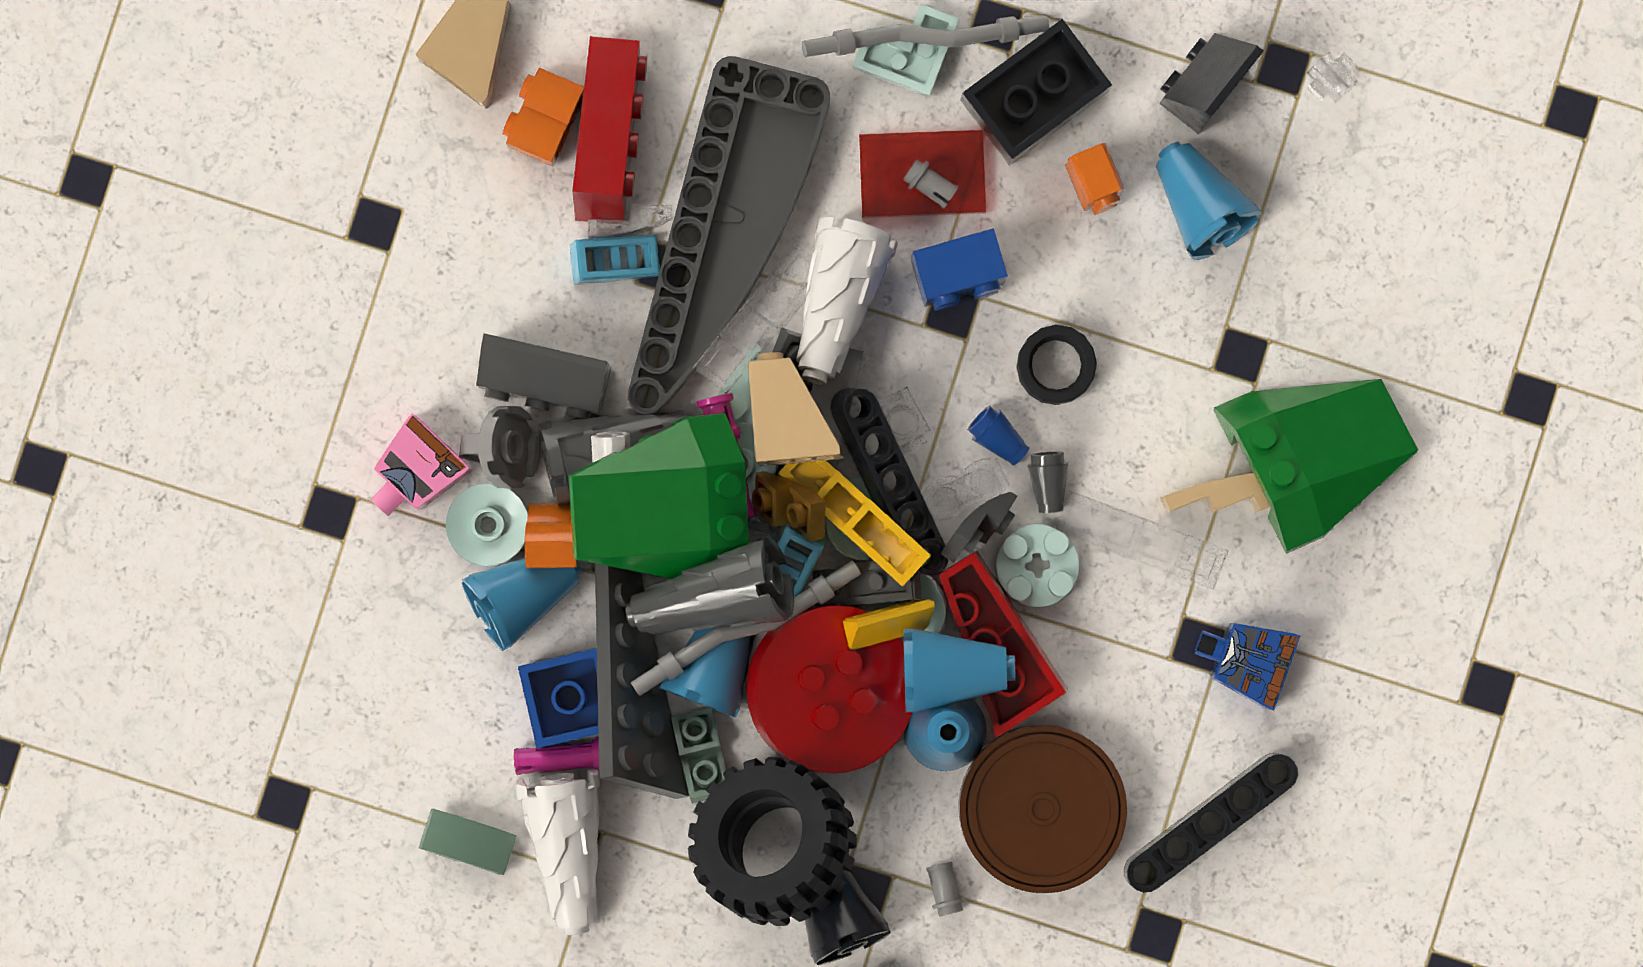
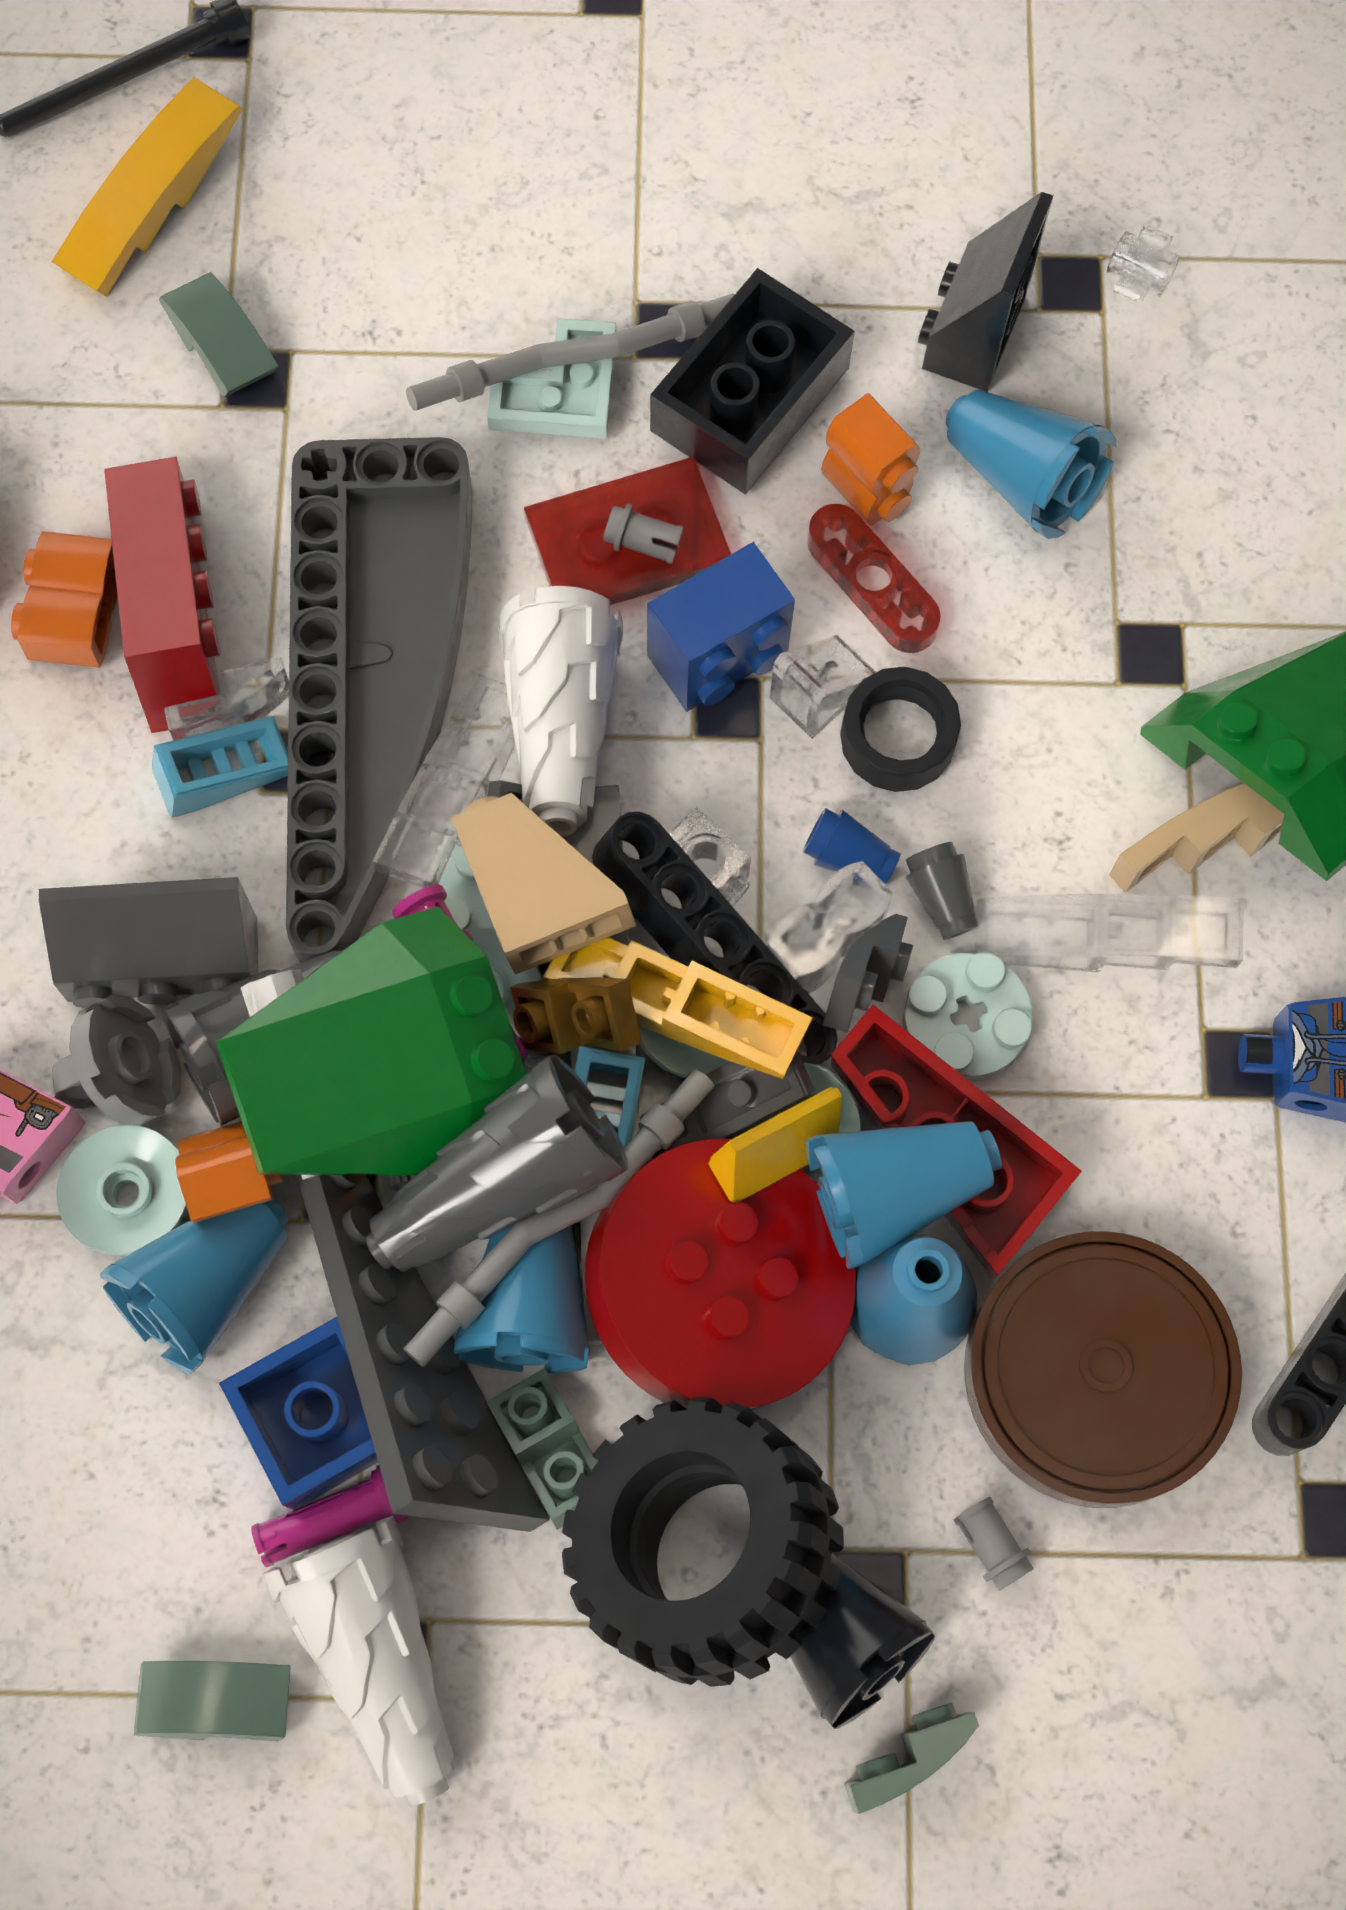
camera: 15 degrees left, 15 degrees down
(1018, 315) = (816, 681): none -> clear slope
(1054, 226) = (913, 599): none -> clear red beam

